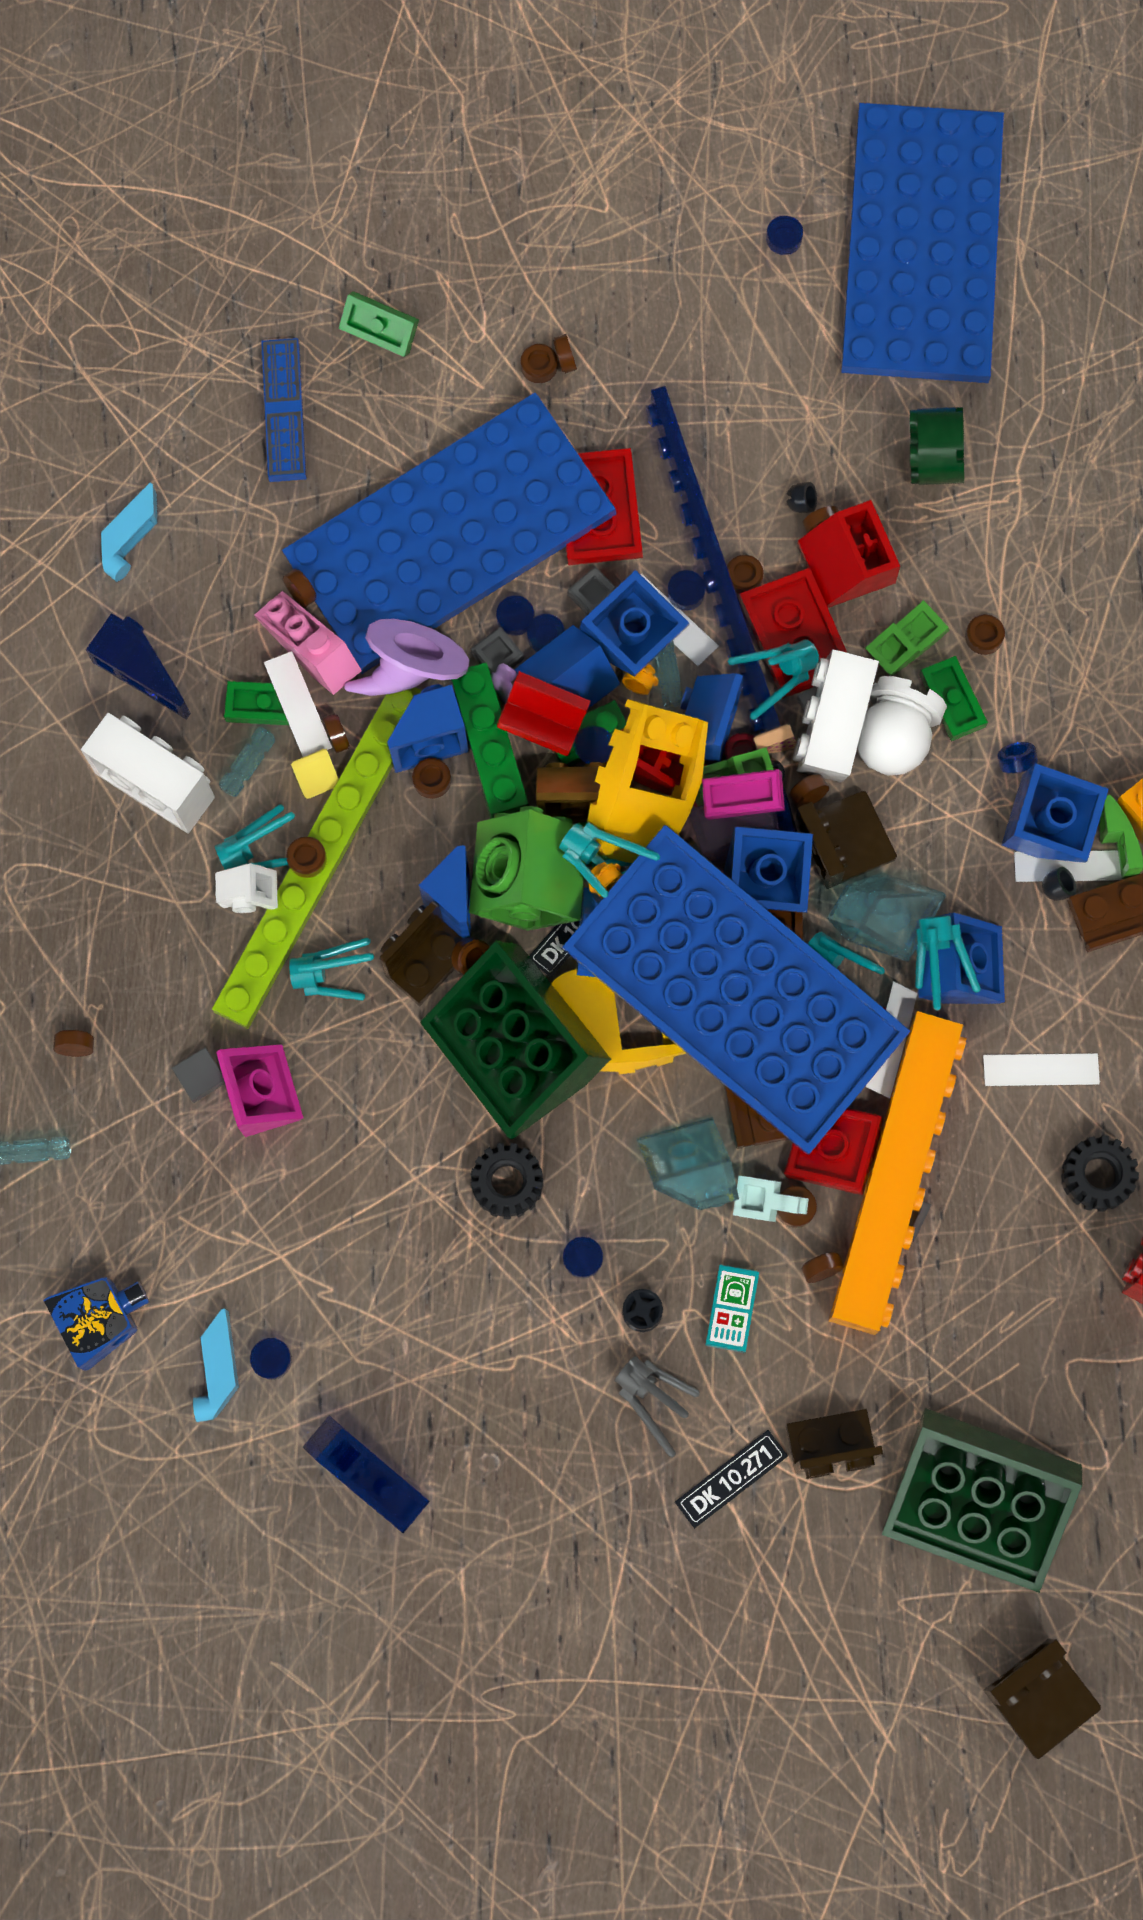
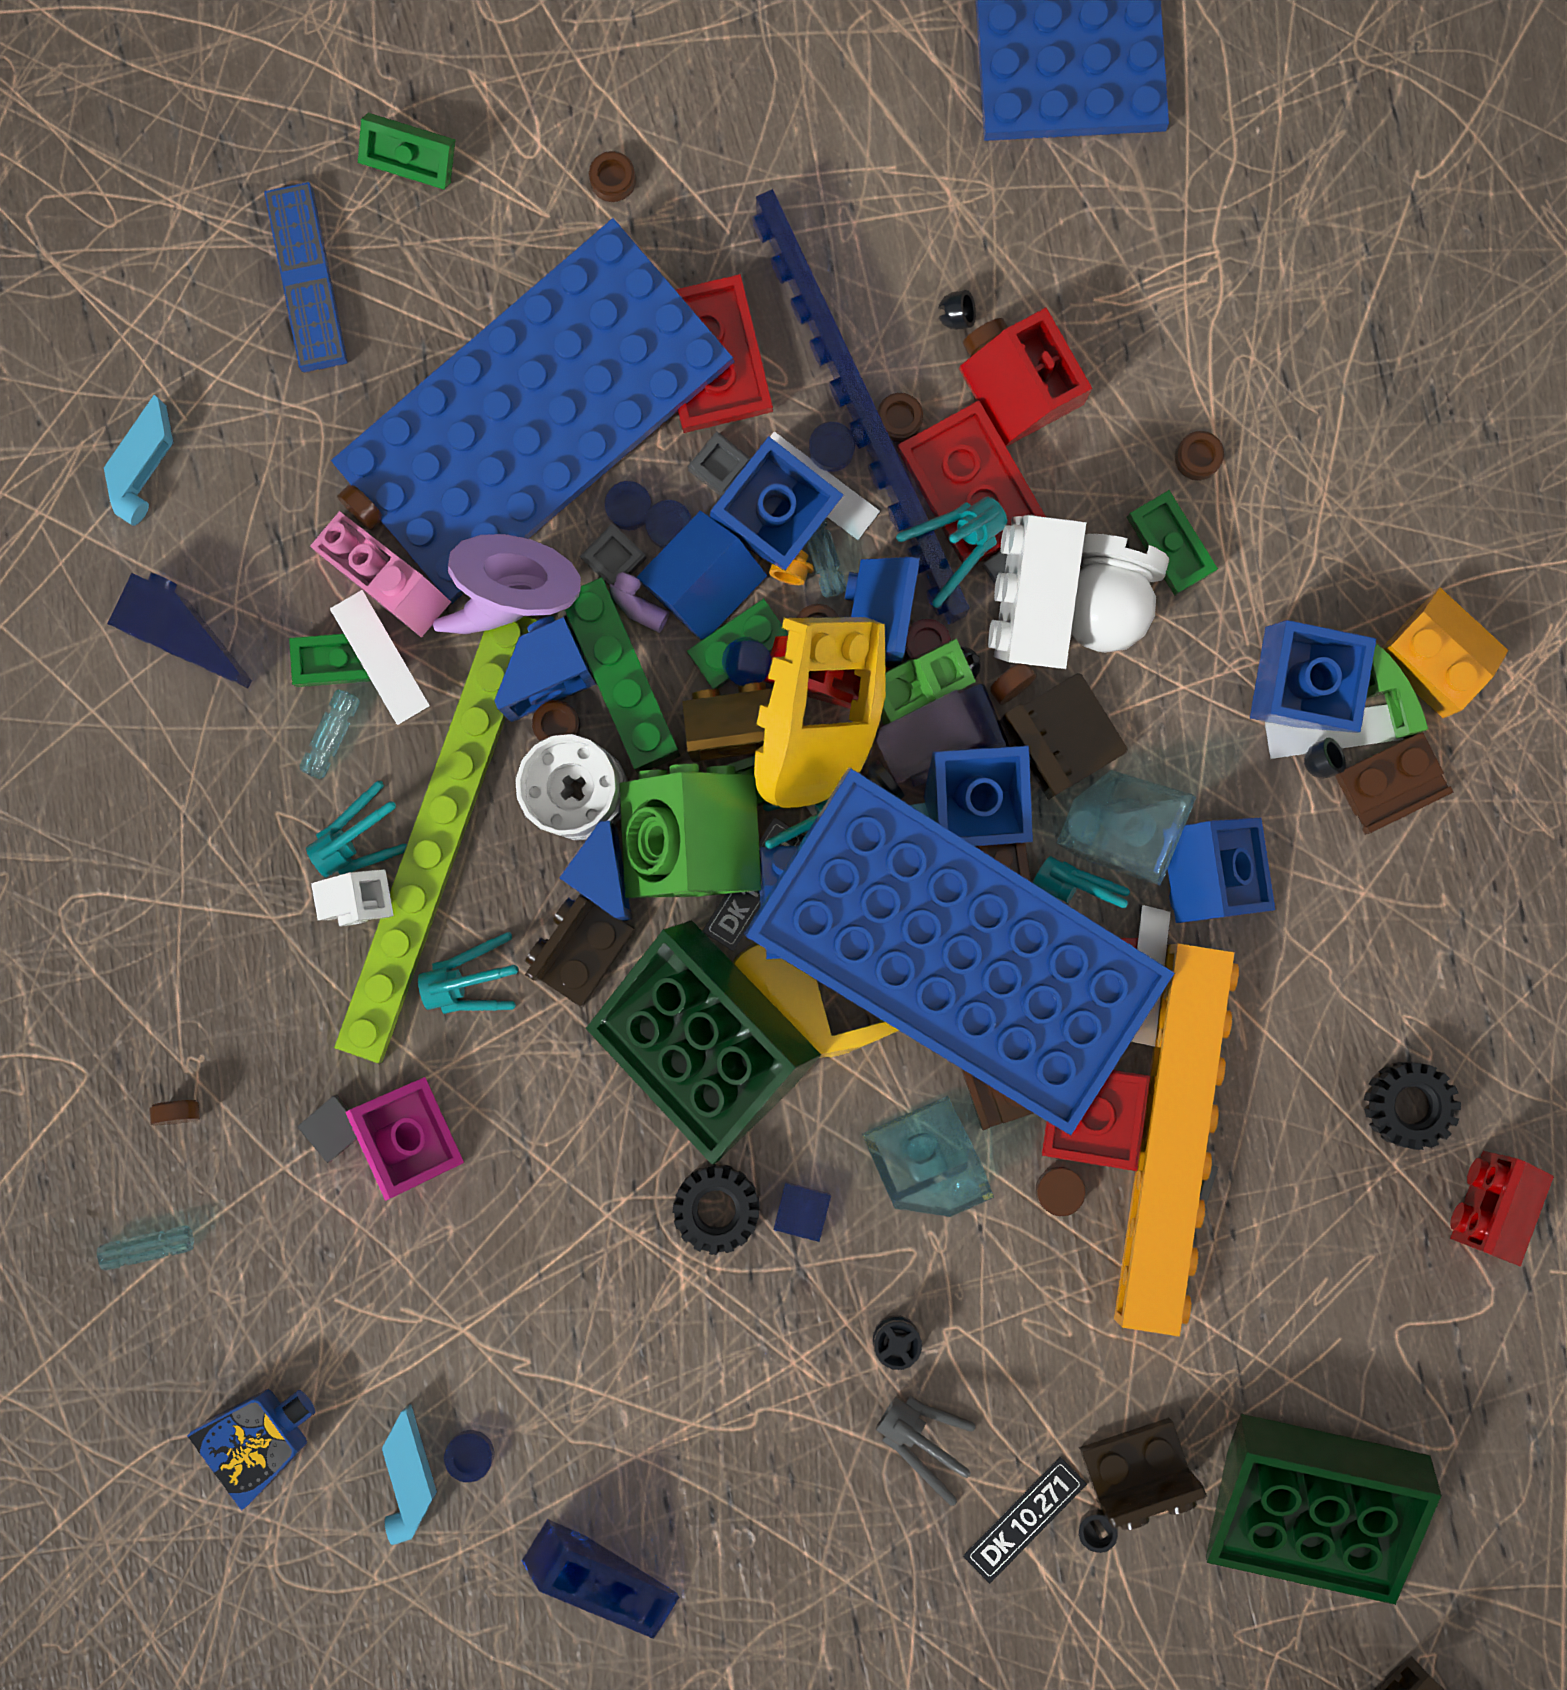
camera: 10 degrees left, 10 degrees up
(149, 771) = (209, 767): white brick -> none
(306, 857) = (418, 848): reddish brown tile -> none
(315, 773) = (414, 739): light yellow slope -> none
(336, 733) = (431, 685): reddish brown tile -> none
(430, 804) = (546, 780): none -> white wheel
(467, 953) = (633, 940): reddish brown tile -> none
(543, 713) = (680, 635): red panel -> none
(564, 353) = (642, 160): reddish brown tile -> none
(578, 1194) = (802, 1211): none -> clear blue tile
(581, 846) = (752, 804): teal plant -> none
(583, 1257) = (818, 1286): clear blue tile -> none
(607, 875) = (784, 840): light orange plate -> none
(732, 1308) = (1001, 1323): tile -> none
(743, 794) = (938, 707): dark pink tile -> none
(762, 1199) = (1021, 1194): light aqua plate -> none
(776, 740) = (965, 624): light nougat tile -> none
(784, 1493) = (1090, 1534): none -> black hinge
(822, 1267) = (1100, 1262): reddish brown tile -> none
(907, 639) = (1107, 473): bright green slope -> none
(931, 937) = (1194, 852): teal plant -> none
(937, 446) = (1117, 224): dark green brick -> none
(1017, 757) = (1258, 608): clear blue tile -> none
(1041, 1069) = (1327, 984): white sticker -> none

